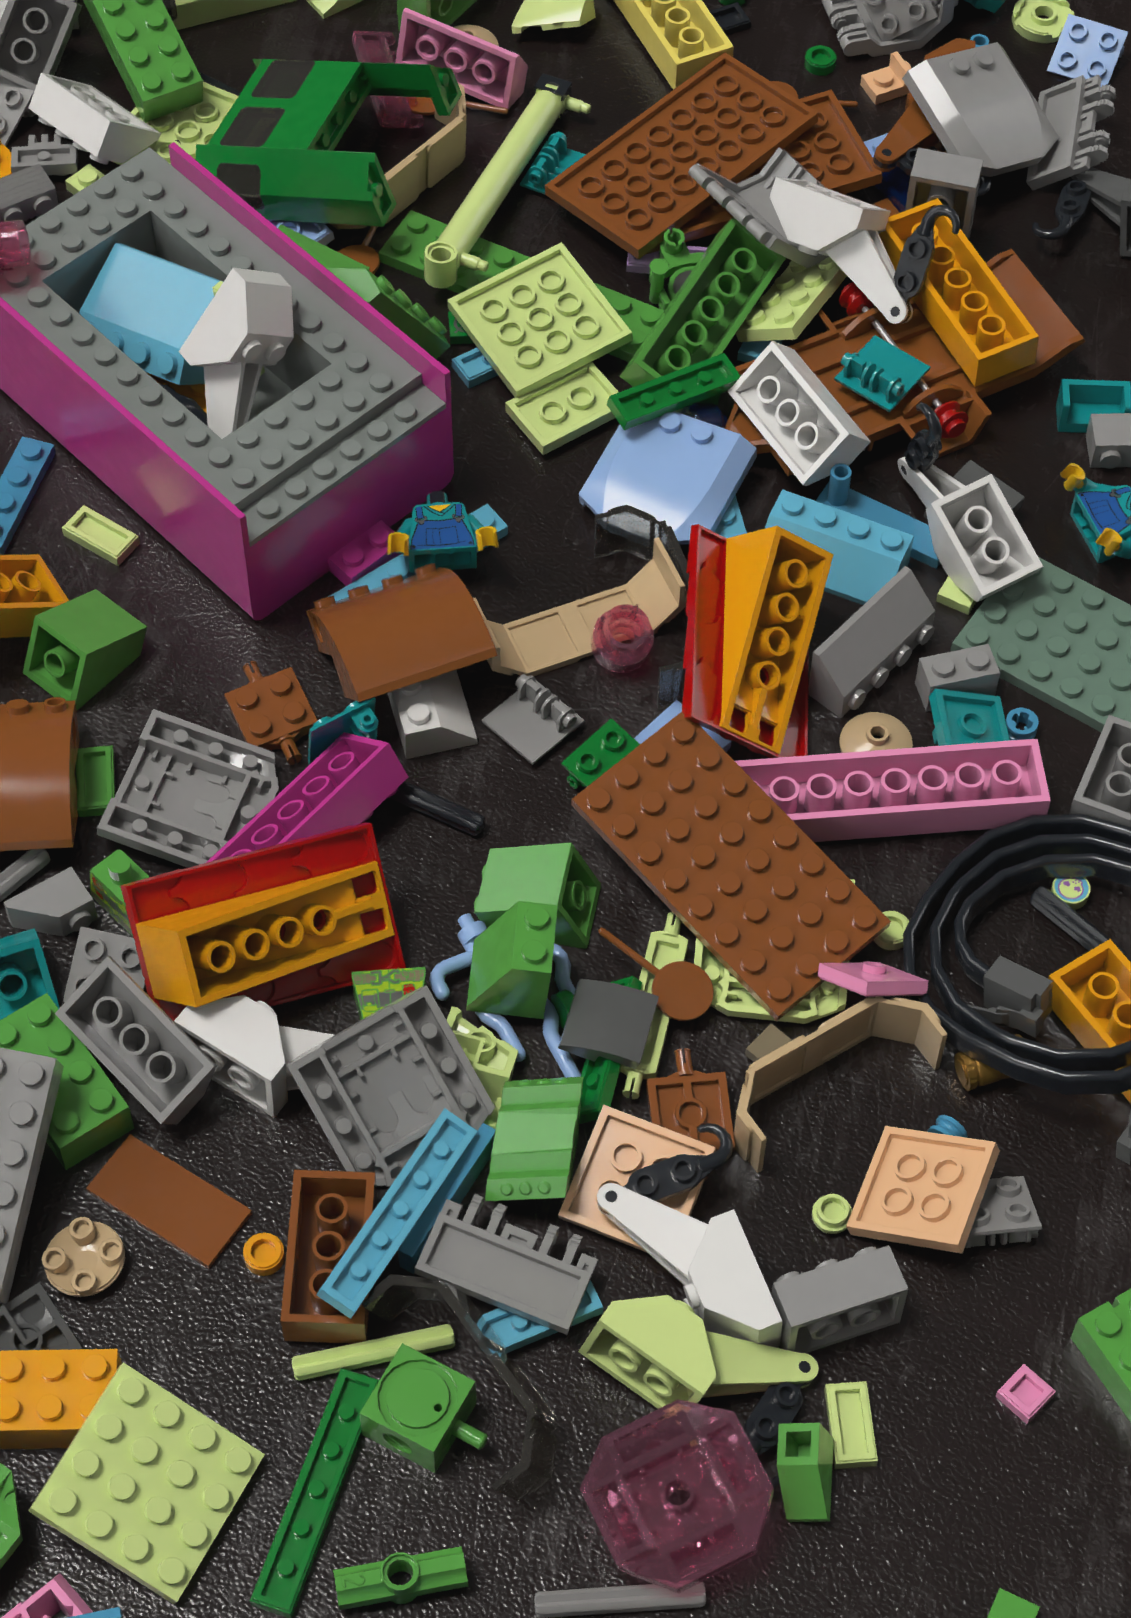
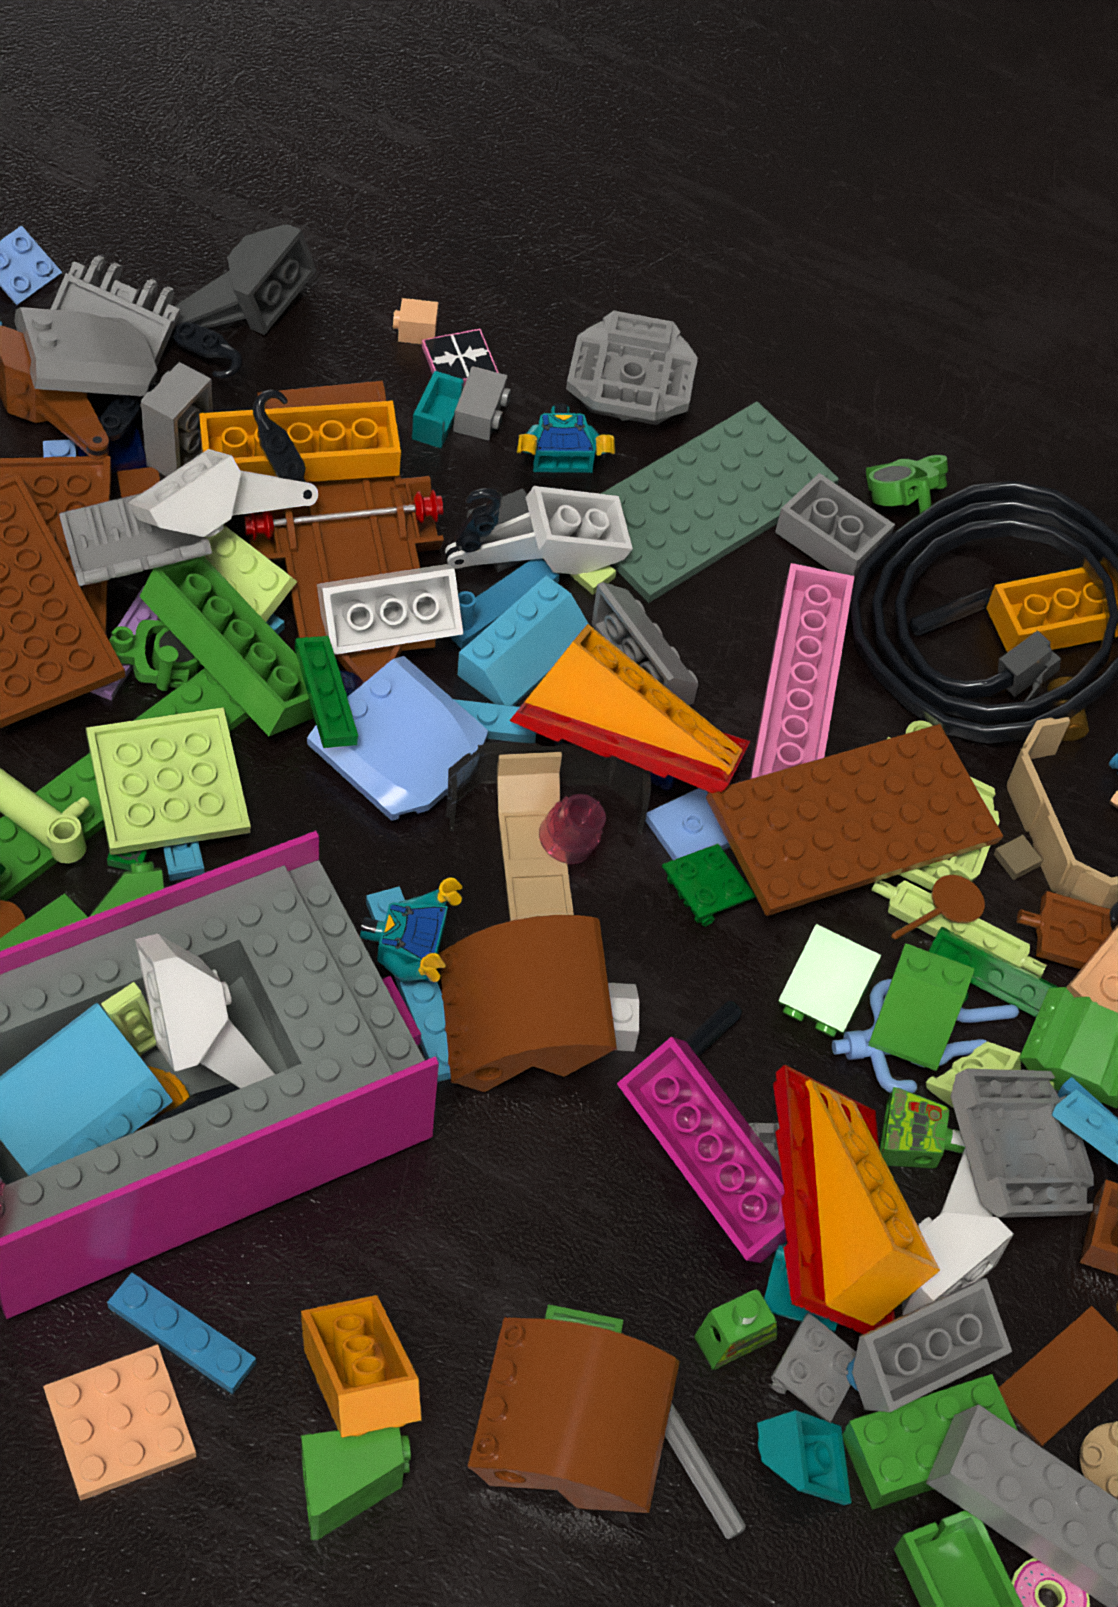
camera: 80 degrees left, 0 degrees up
(53, 906) = (729, 1396): light grey slope -> none
(82, 646) = (426, 1300): bright green slope -> none
(100, 535) = (268, 1256): yellowish green tile -> none
(188, 791) = (635, 1245): light grey wedge -> none
(272, 711) = (550, 1149): dark orange plate -> none
(356, 719) = (614, 1082): teal hinge -> none
(532, 719) = (633, 932): light grey hinge -> none
(563, 408) = (275, 796): yellowish green plate -> none
(608, 1022) = (992, 954): dark grey slope -> none
(859, 733) = (729, 696): tan dish -> none
(873, 979) = (995, 753): bright pink plate -> none
(881, 373) = (362, 533): teal hinge -> none
(959, 670) = (692, 602): light grey brick -> none
(967, 718) = (746, 611): teal hinge -> none
(1024, 716) = (745, 572): dark azure bush -> none
(1072, 890) = (918, 603): tile -> none

